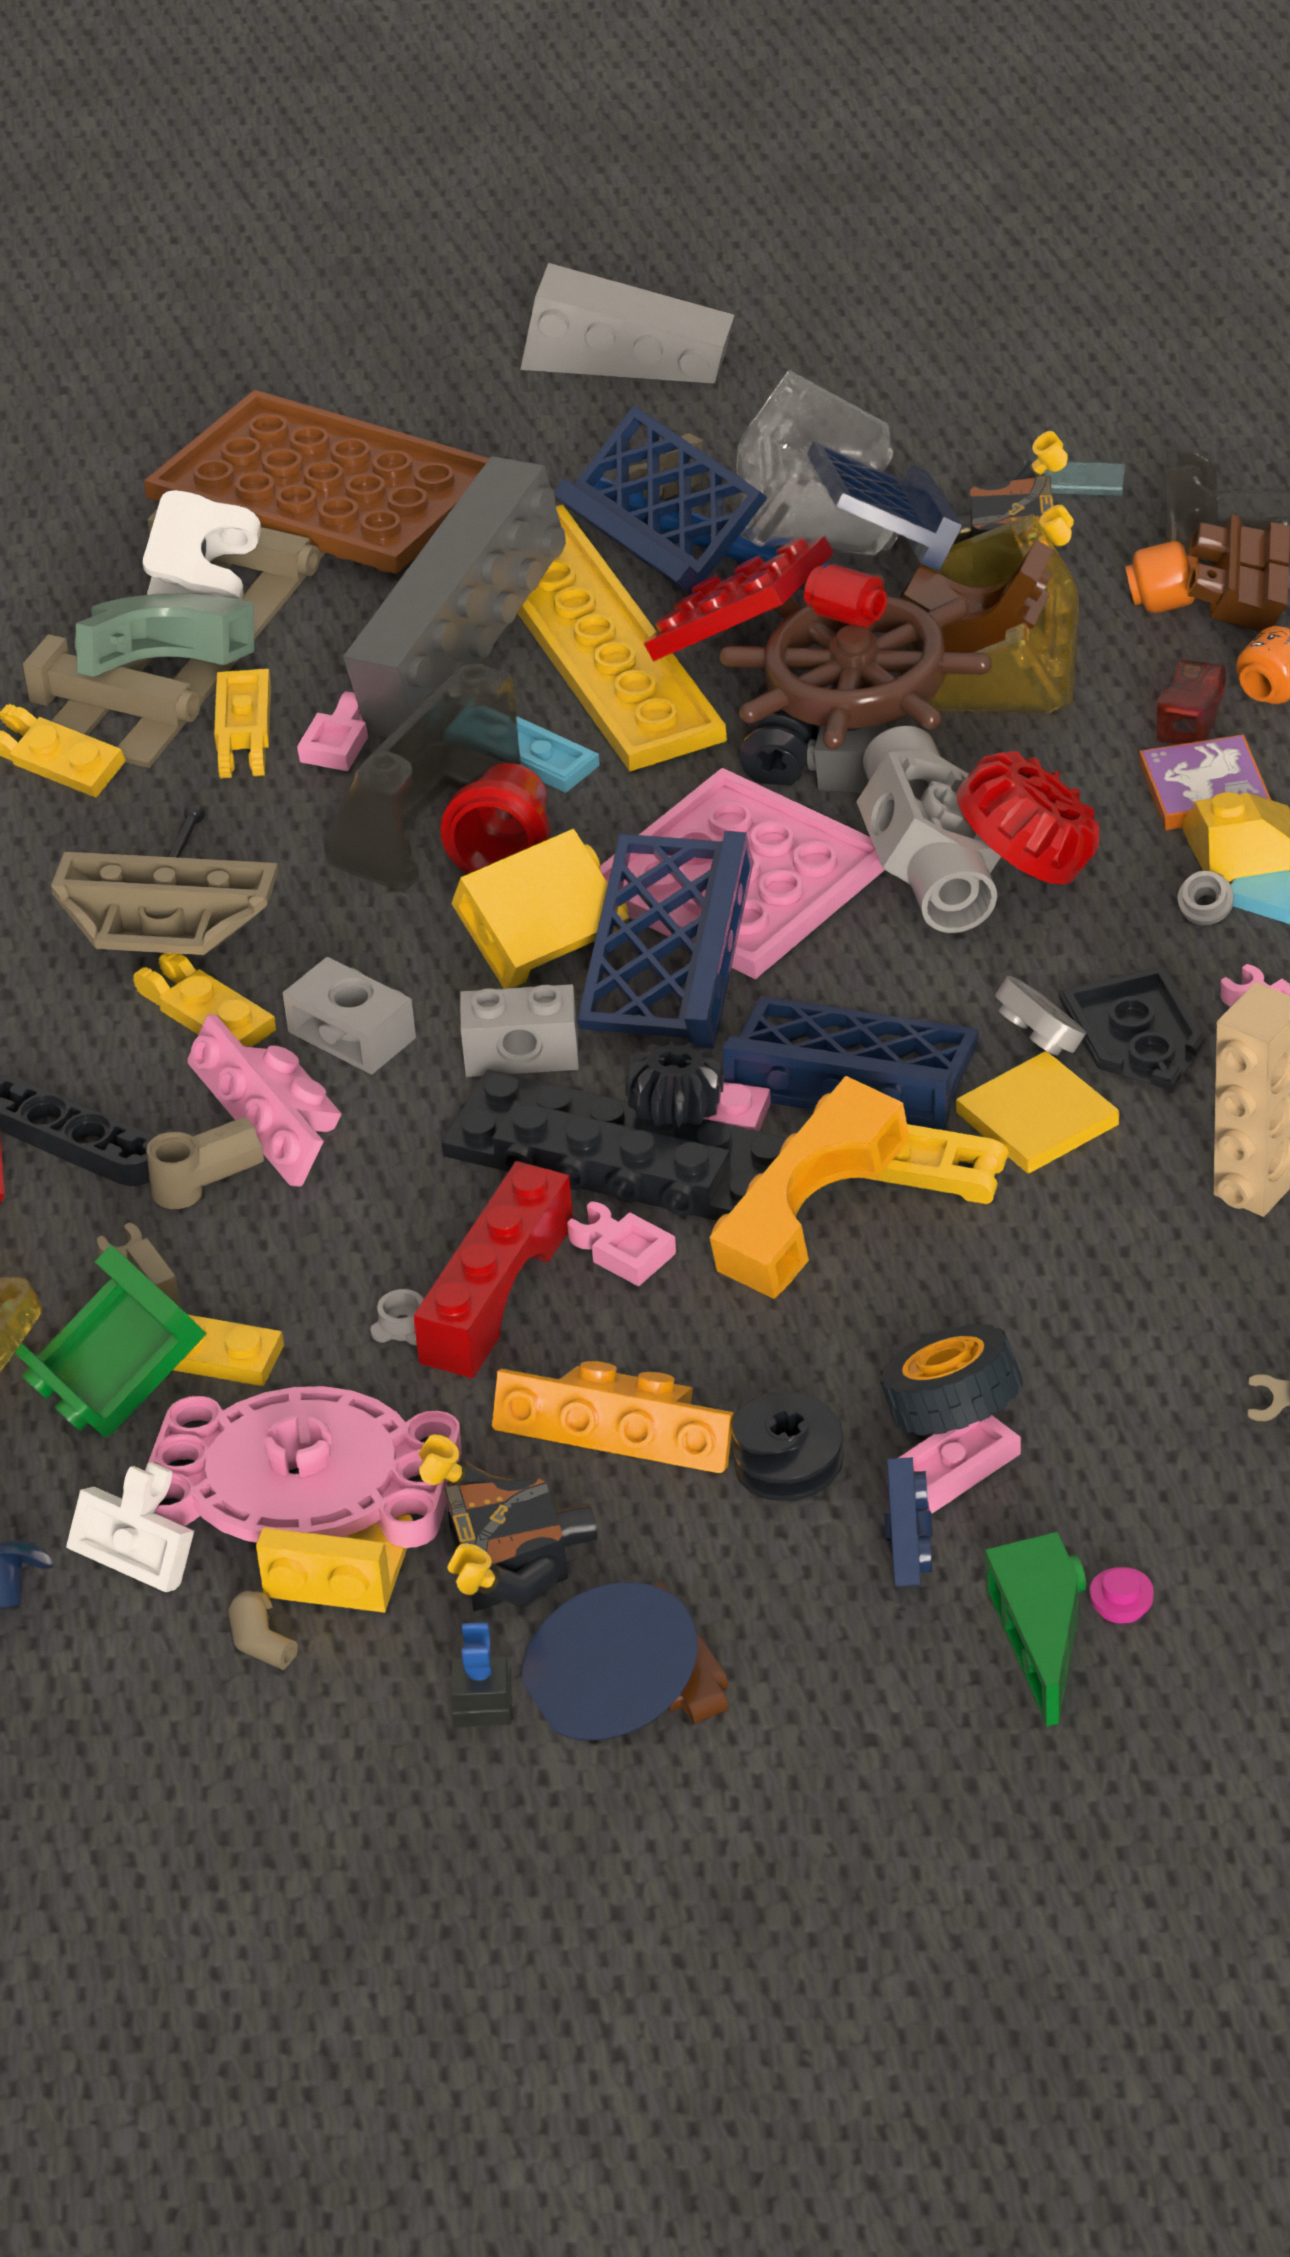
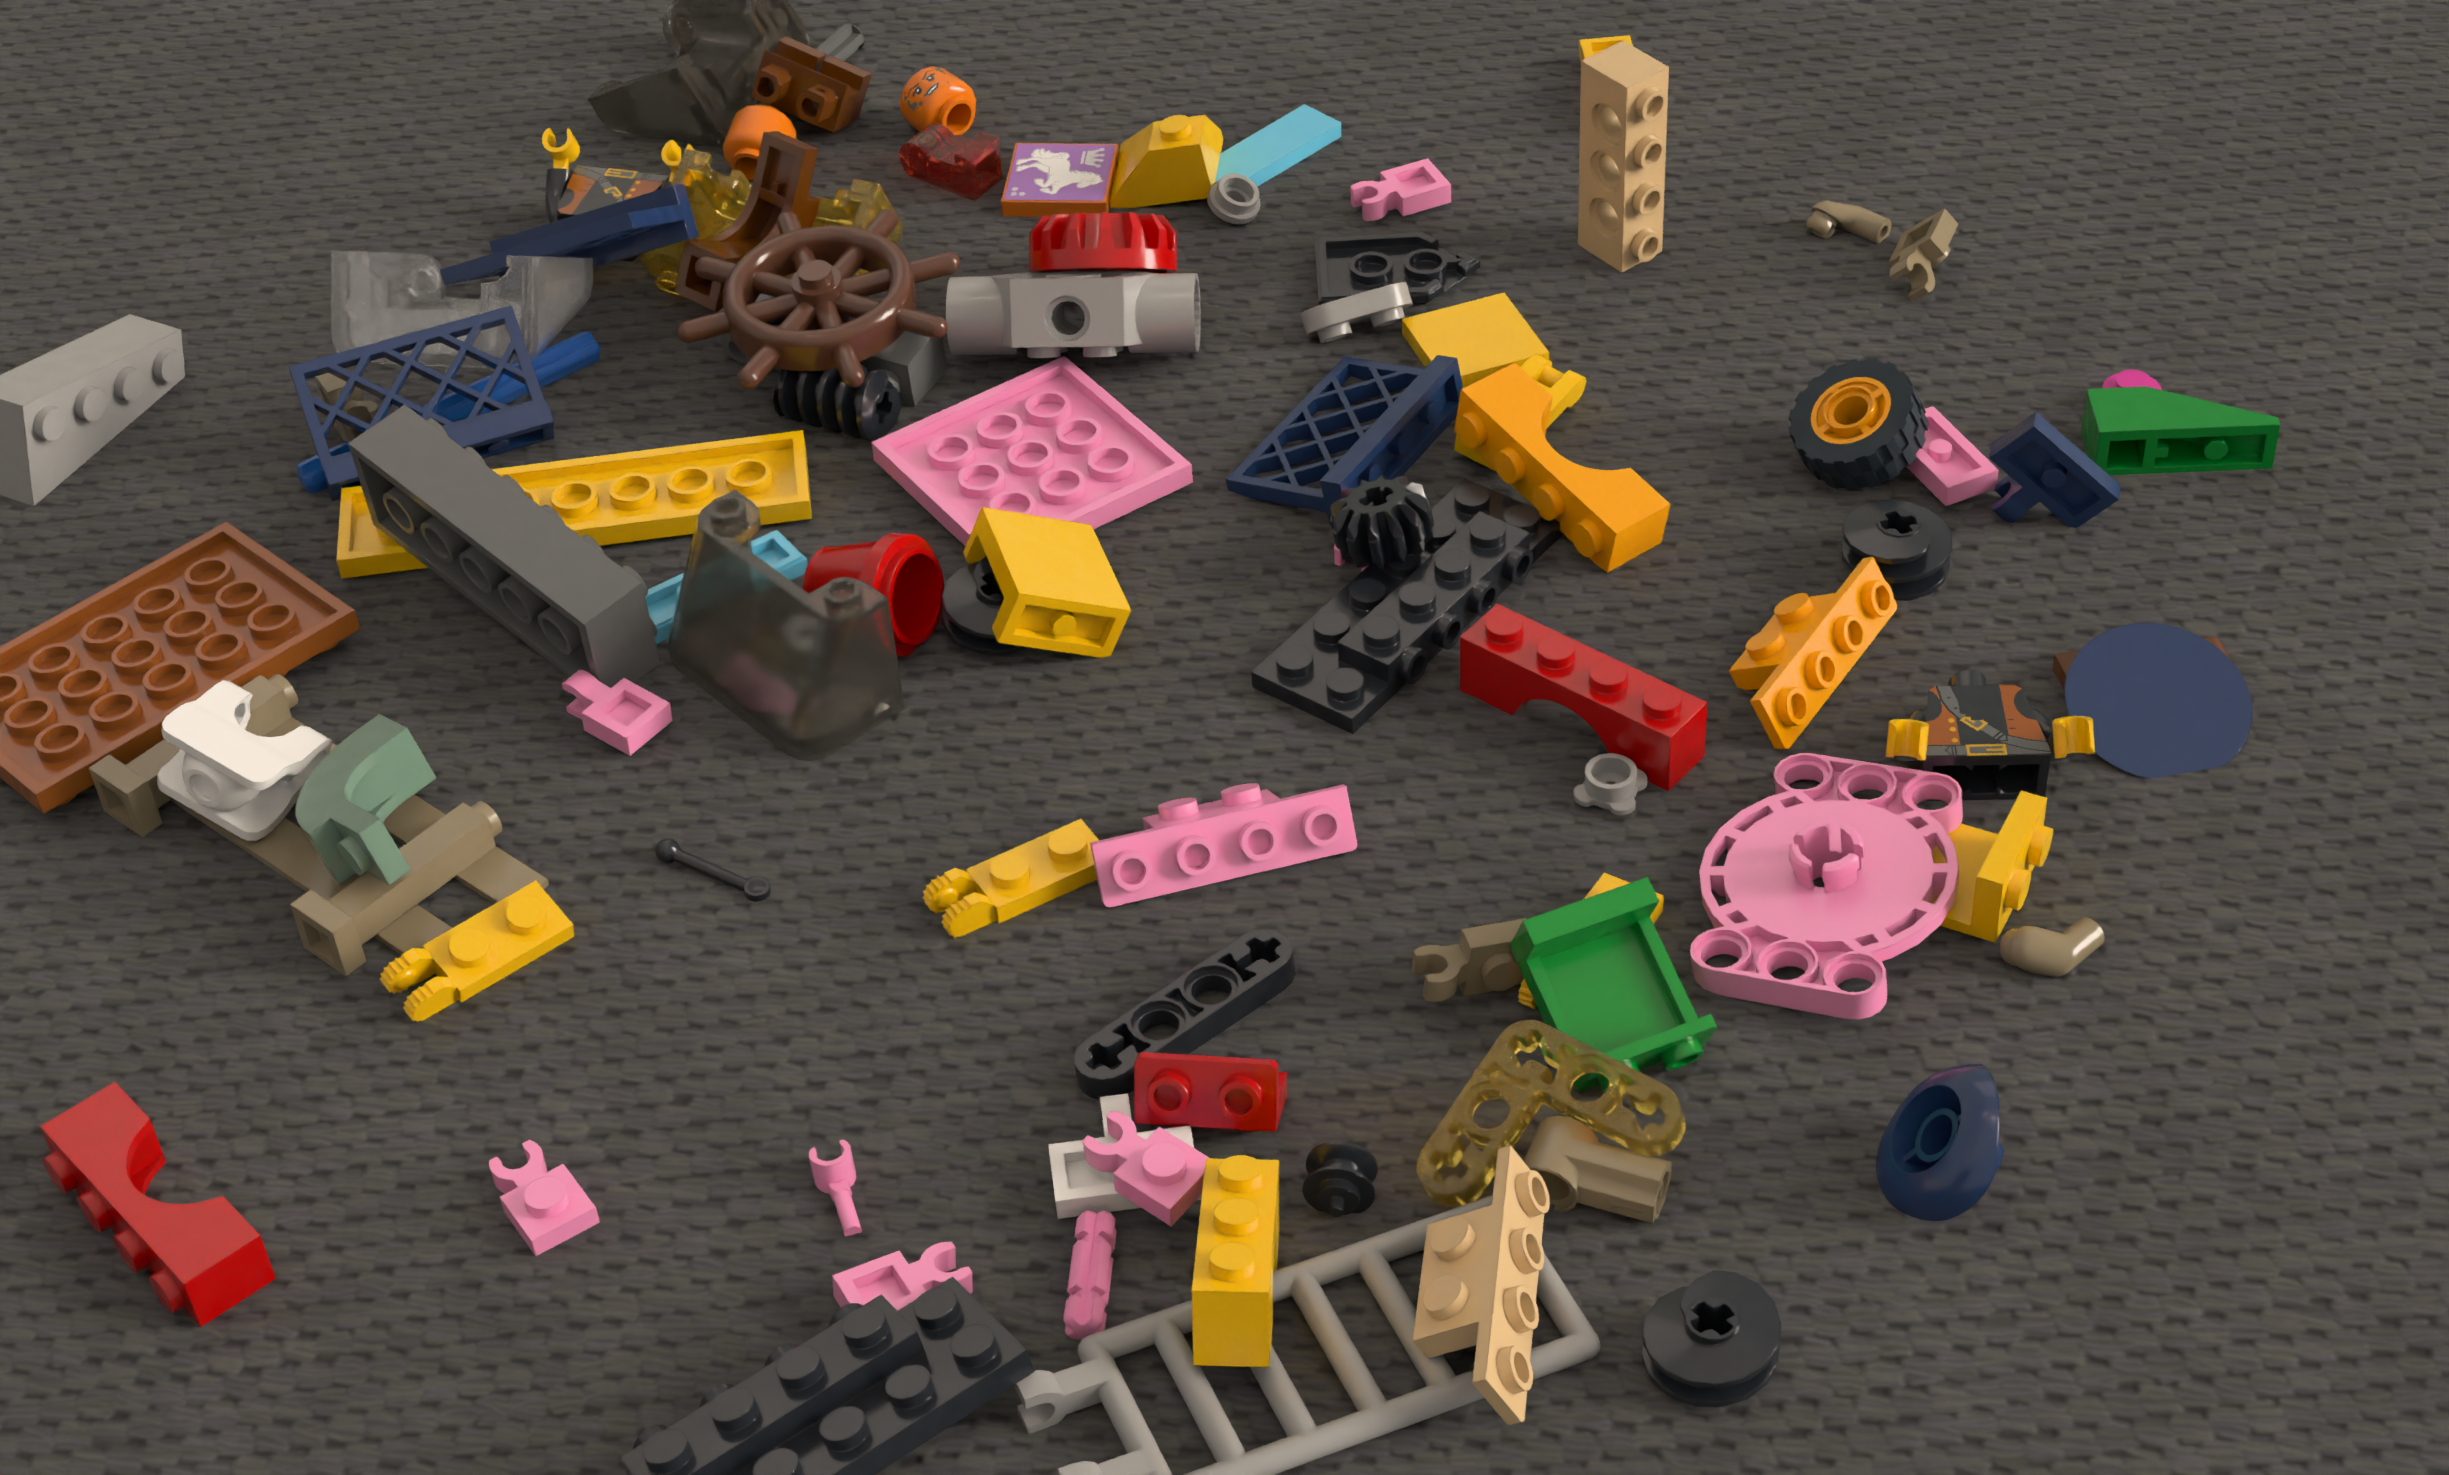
camera: 75 degrees left, 0 degrees up
(129, 1533) = (1905, 1015): white plate -> none
(160, 900) = (876, 854): dark tan wedge -> none
(186, 1163) = (1311, 898): dark tan piece -> none
(242, 718) = (537, 784): yellow hinge -> none
(349, 1015) = (1119, 755): light grey brick -> none
(480, 1682) = (2181, 790): pearl dark grey piece -> none
(519, 1030) = (1216, 631): light grey brick -> none
(626, 1247) = (1573, 607): bright pink plate -> none
(711, 953) = (1167, 466): dark blue fence -> none
(749, 593) = (648, 364): red plate -> none
(845, 595) = (766, 254): red brick -> none
(1088, 478) = (531, 190): clear light blue piece -> none

